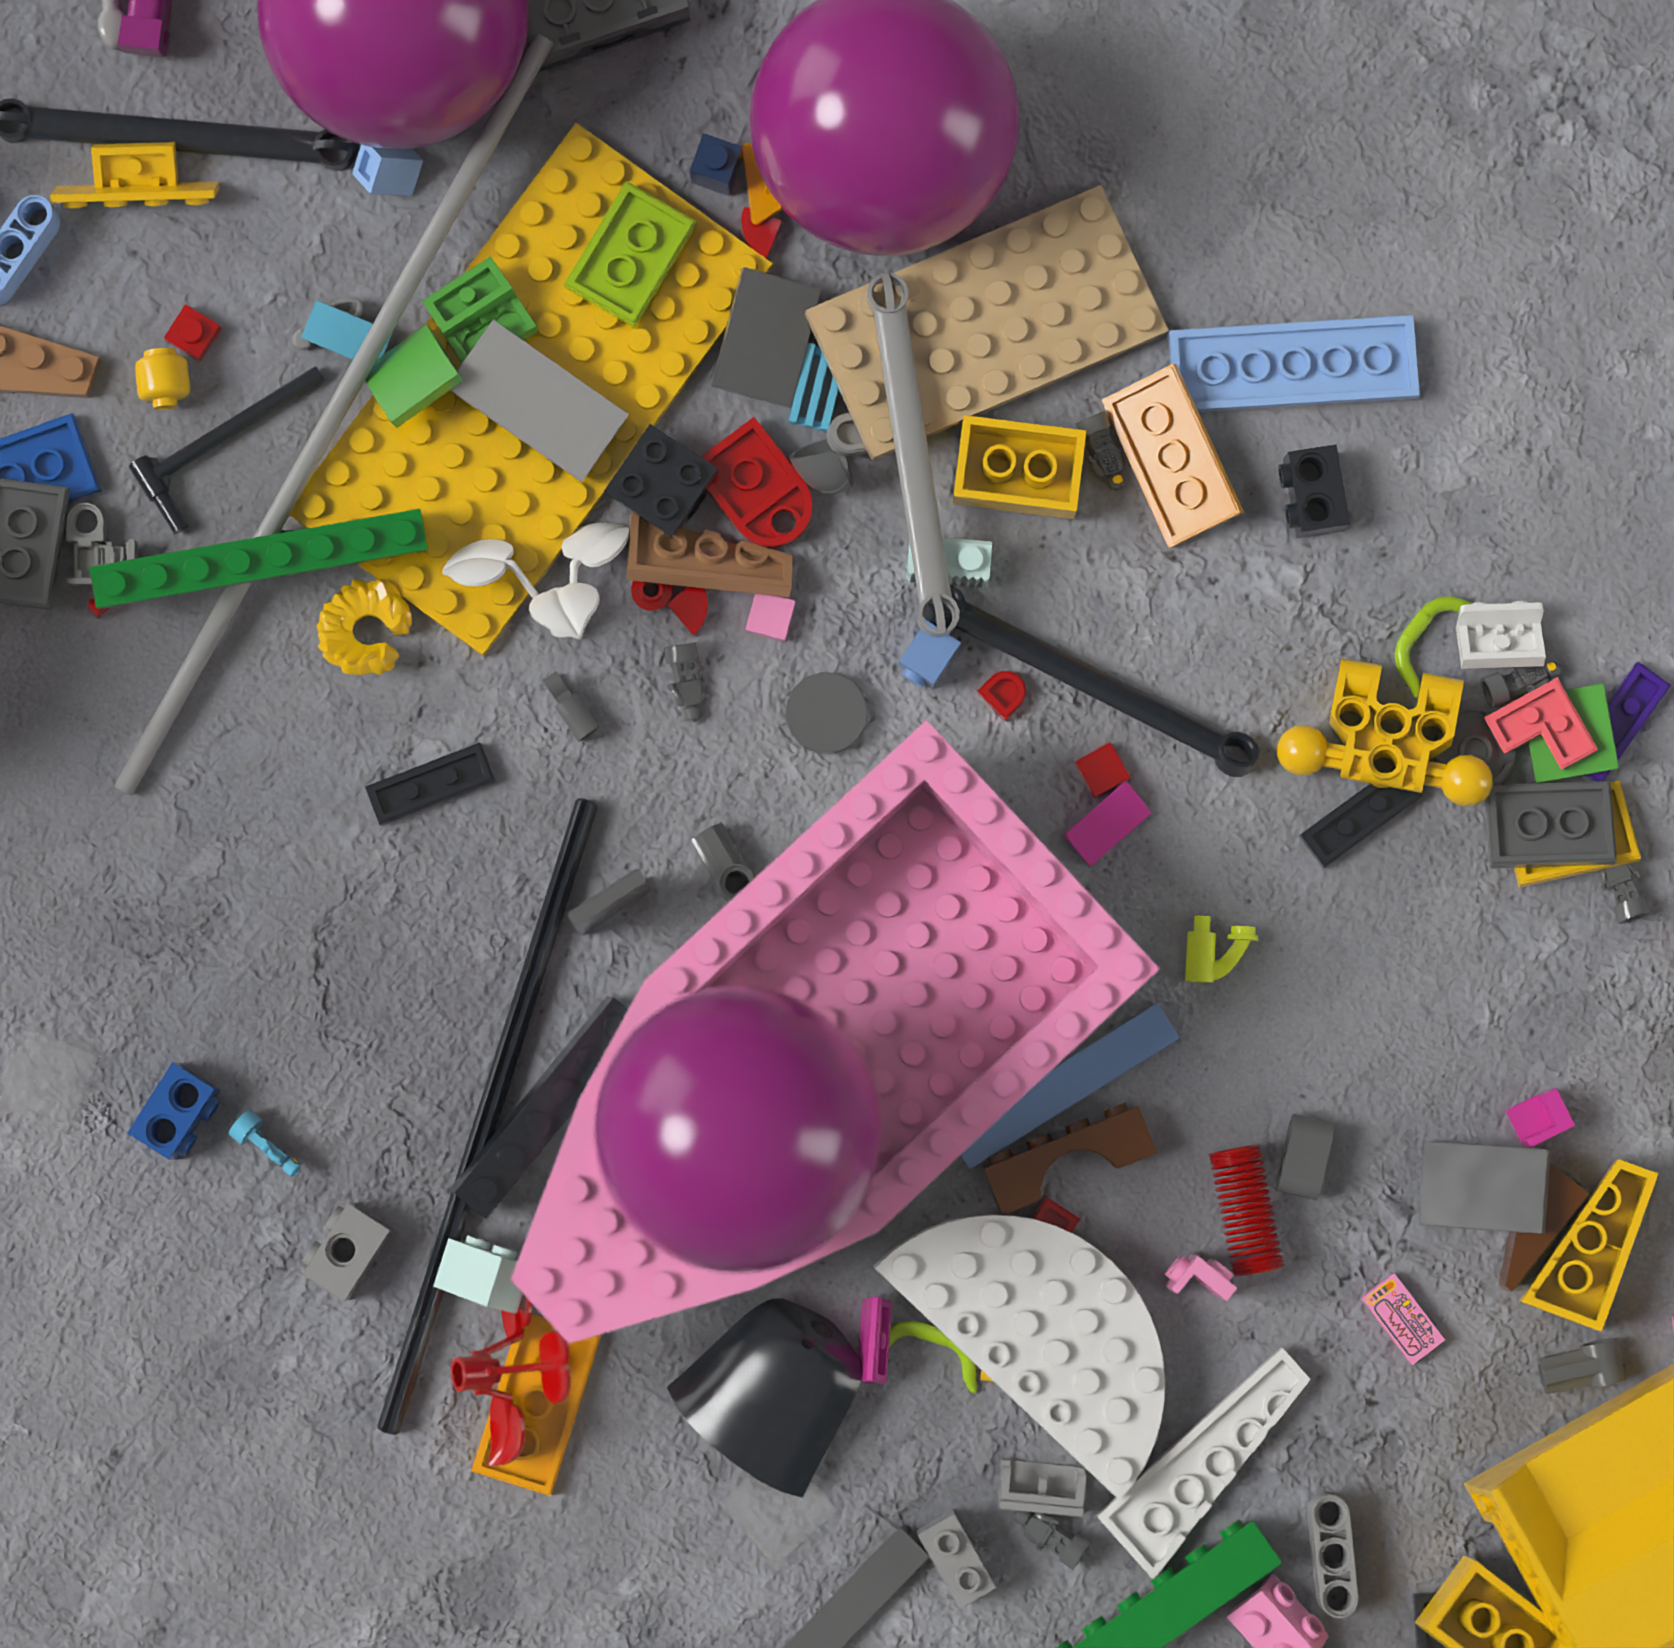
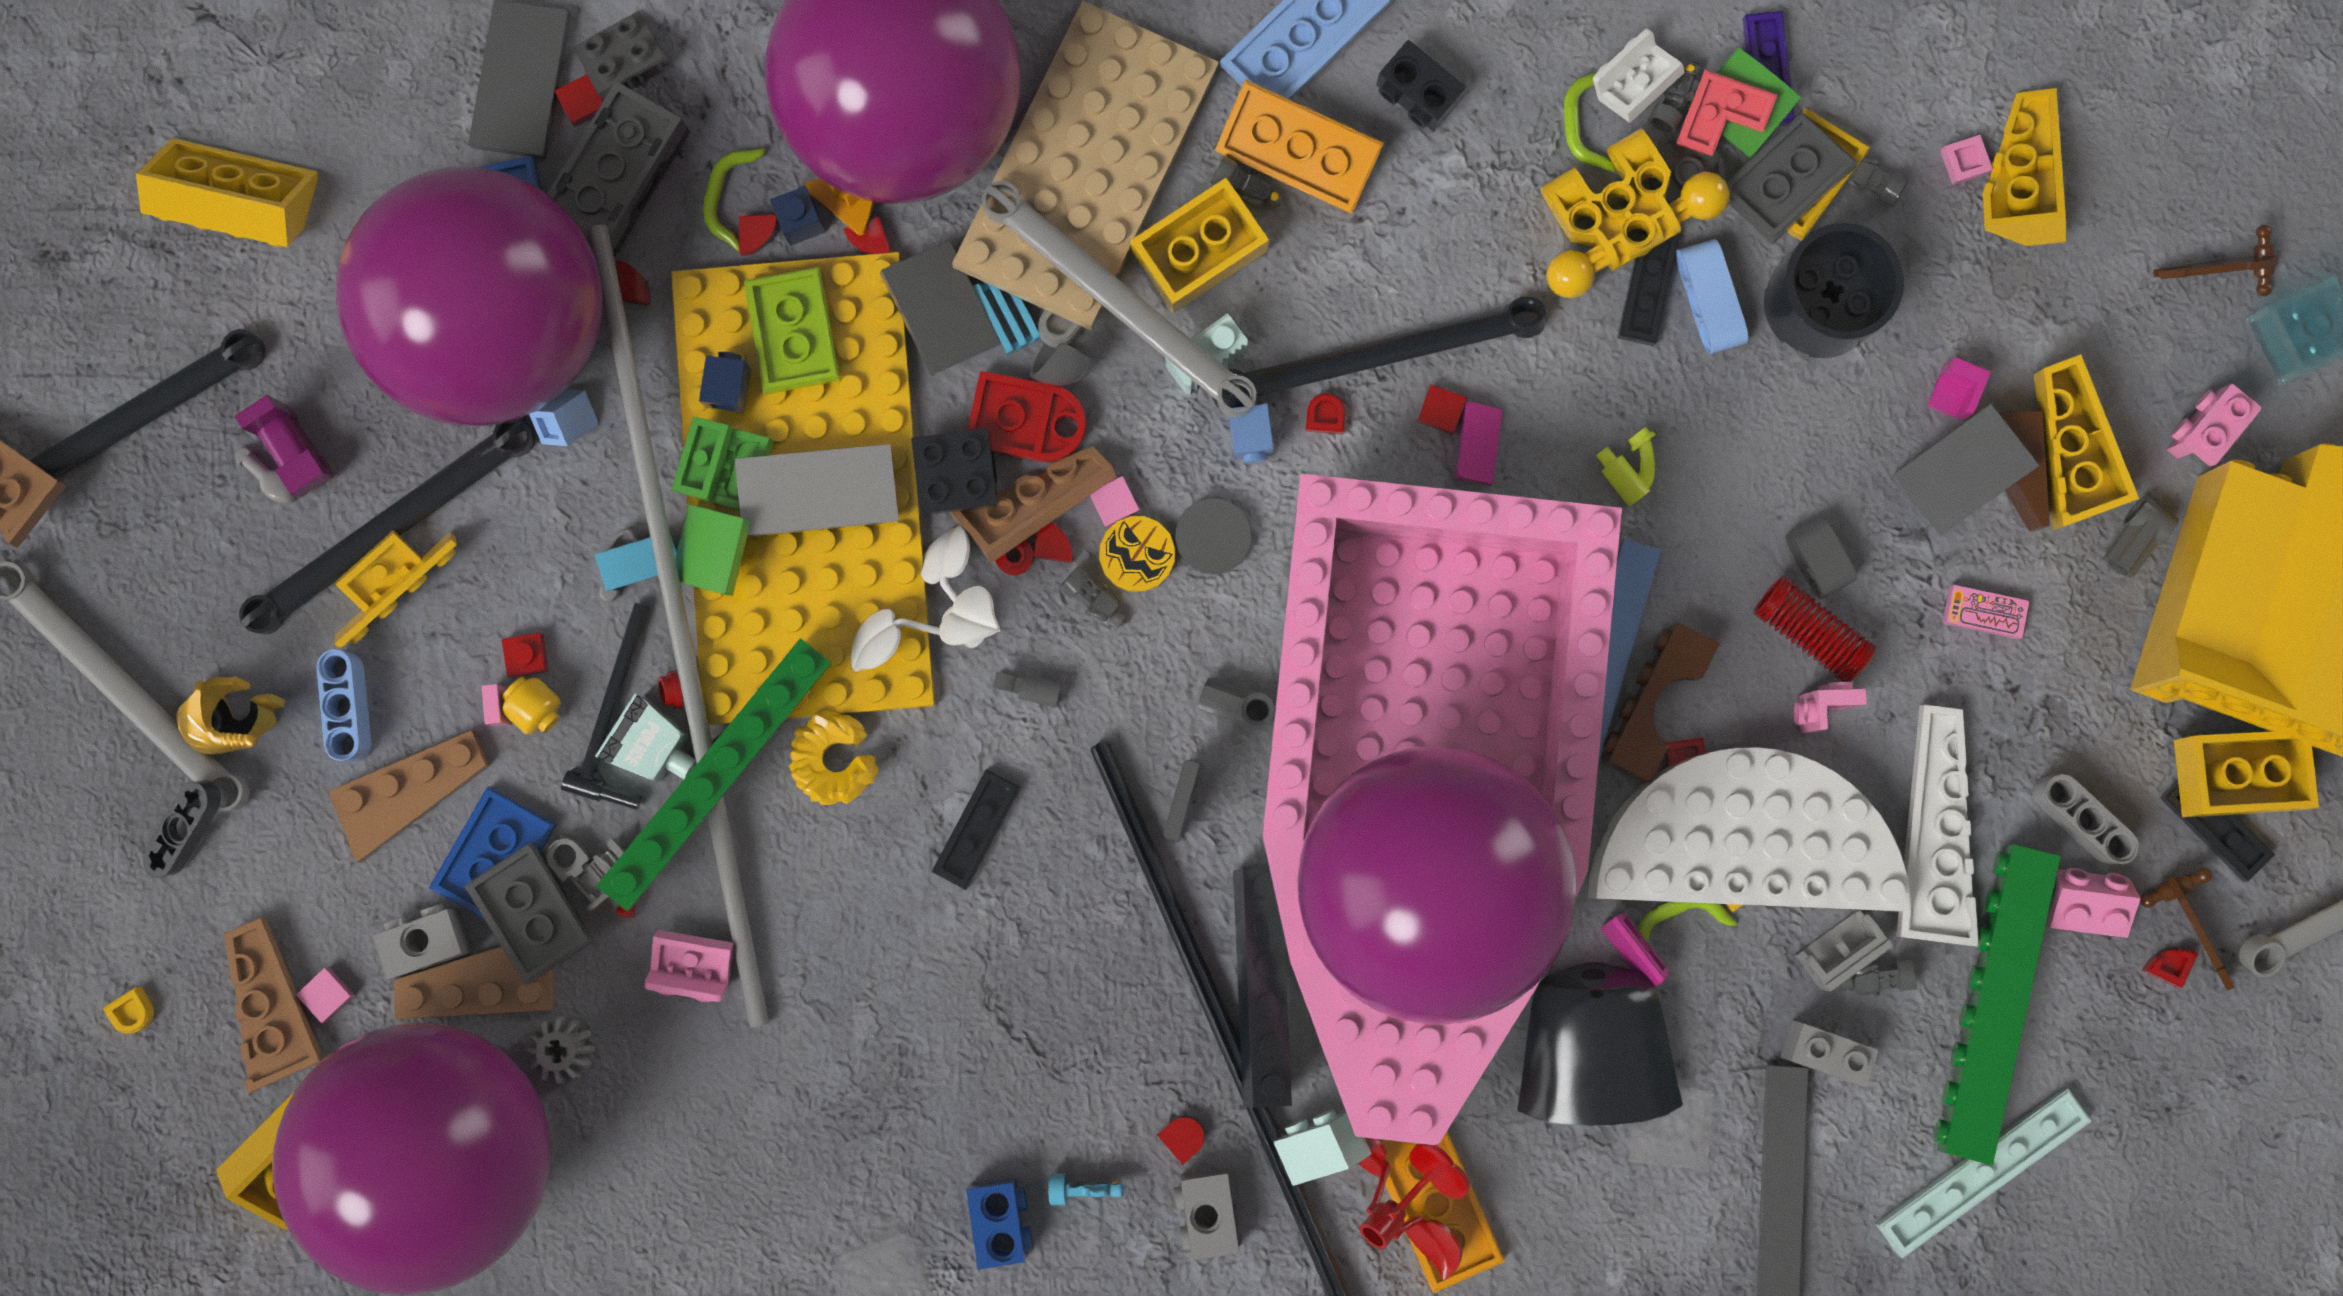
camera: 35 degrees left, 0 degrees up
(108, 695) = (689, 966): none -> bright pink bracket
(133, 351) = (493, 705): none -> bright pink tile
(228, 487) = (647, 742): none -> light aqua torso
(283, 461) = (670, 690): none -> red plate
(380, 1173) = (1183, 1137): none -> red tile
(535, 106) = (632, 285): none -> red tile
(539, 251) = (725, 382): none -> dark blue brick
(667, 86) = (714, 191): none -> lime animal
(671, 148) = (755, 232): none -> red tile
(752, 674) = (1137, 554): none -> tile
(1403, 868) = (1712, 296): none -> light blue beam
(1531, 933) = (1850, 265): none -> black brick

